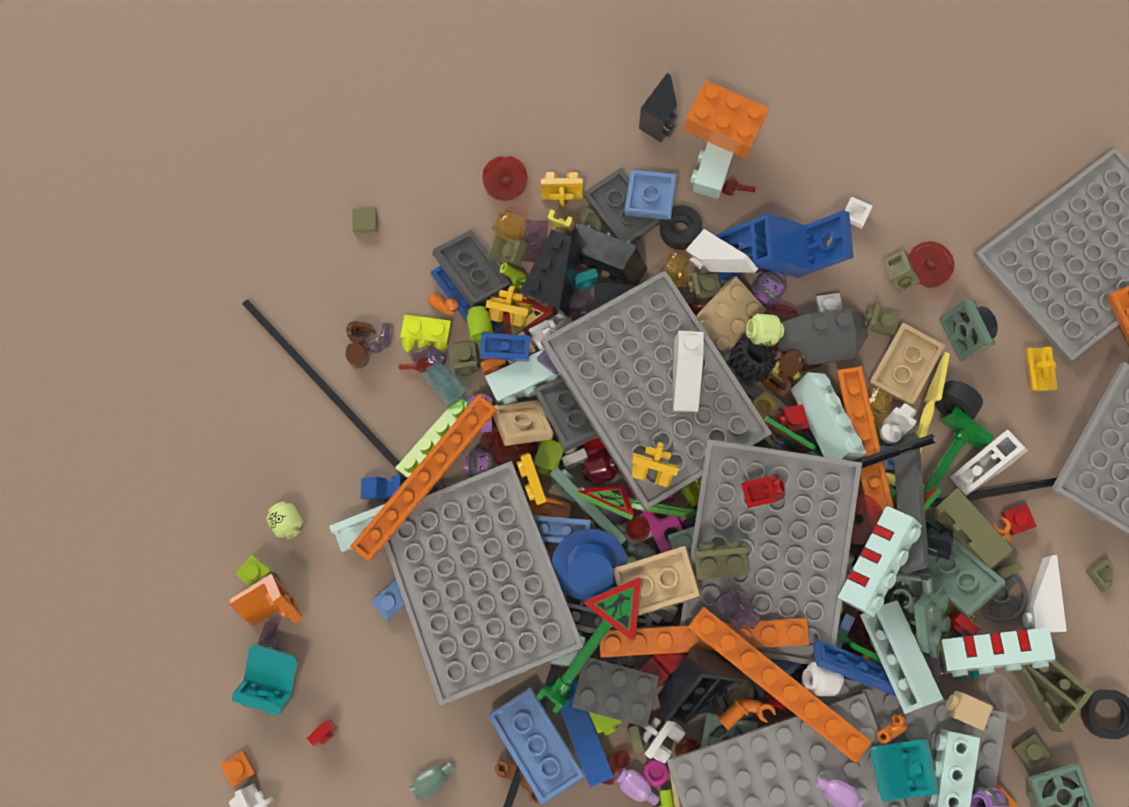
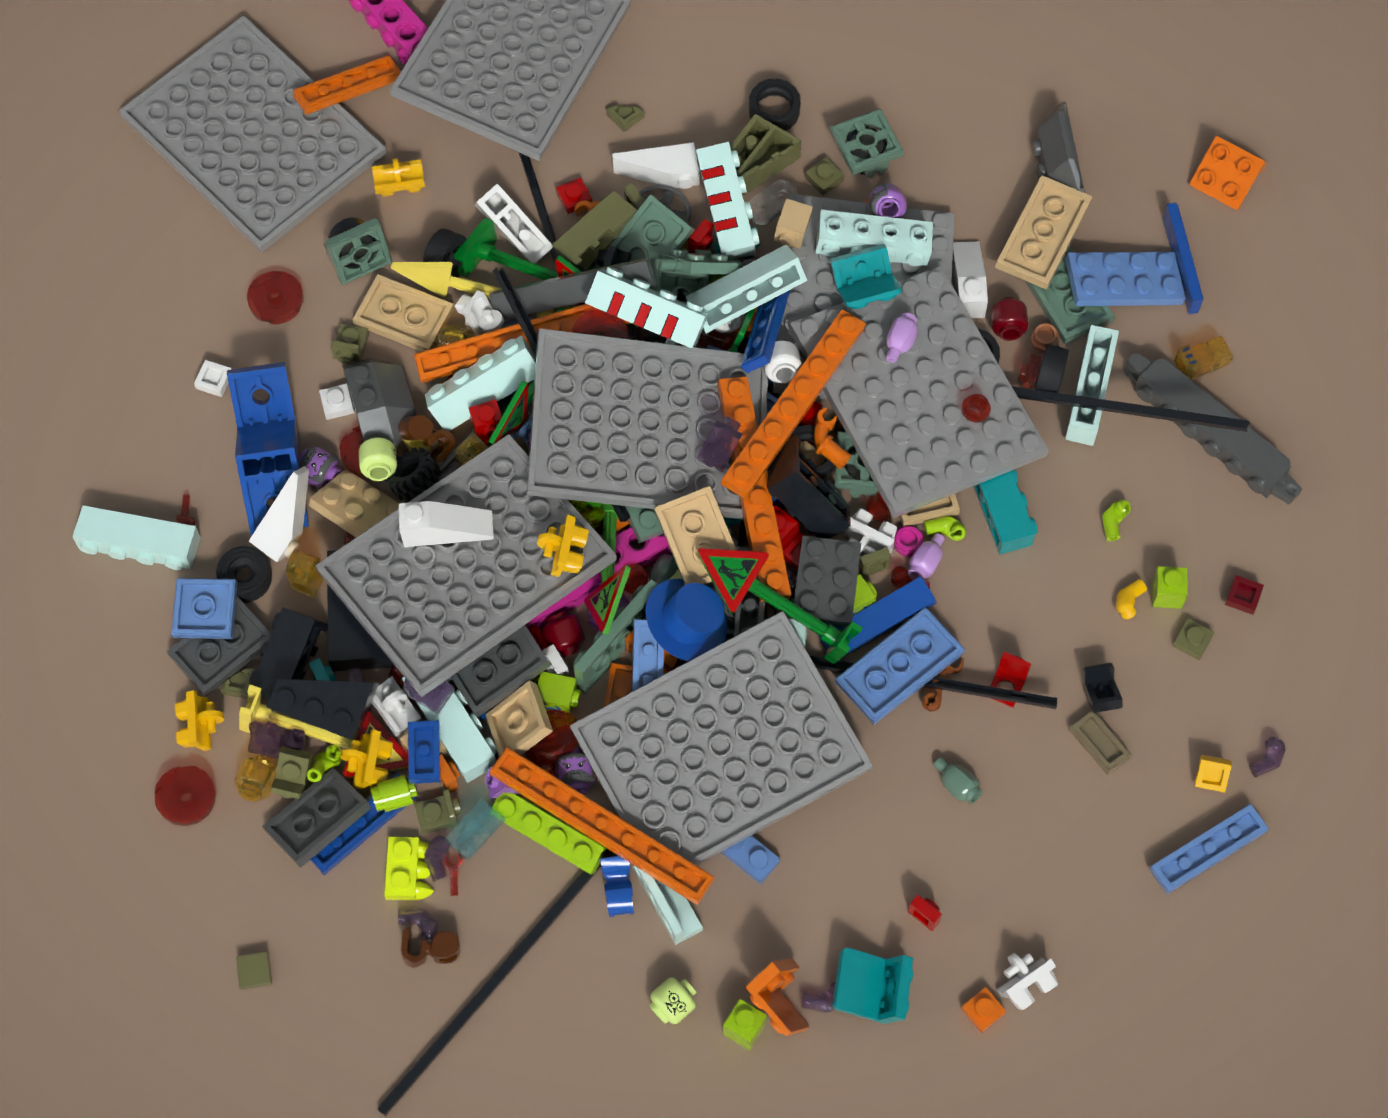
camera: 100 degrees left, 10 degrees down
(447, 307) = (369, 850): orange arm -> none
(534, 487) = (588, 696): yellow plate -> none
(659, 111) = (86, 606): black slope -> none
(703, 286) = (320, 539): olive bracket -> none
(721, 561) = (665, 467): olive bracket -> none
(726, 119) = (102, 522): orange brick -> none
(763, 490) = (583, 425): red bracket -> none
(893, 730) = (824, 294): orange arm -> none
(900, 271) = (287, 325): olive bracket -> none

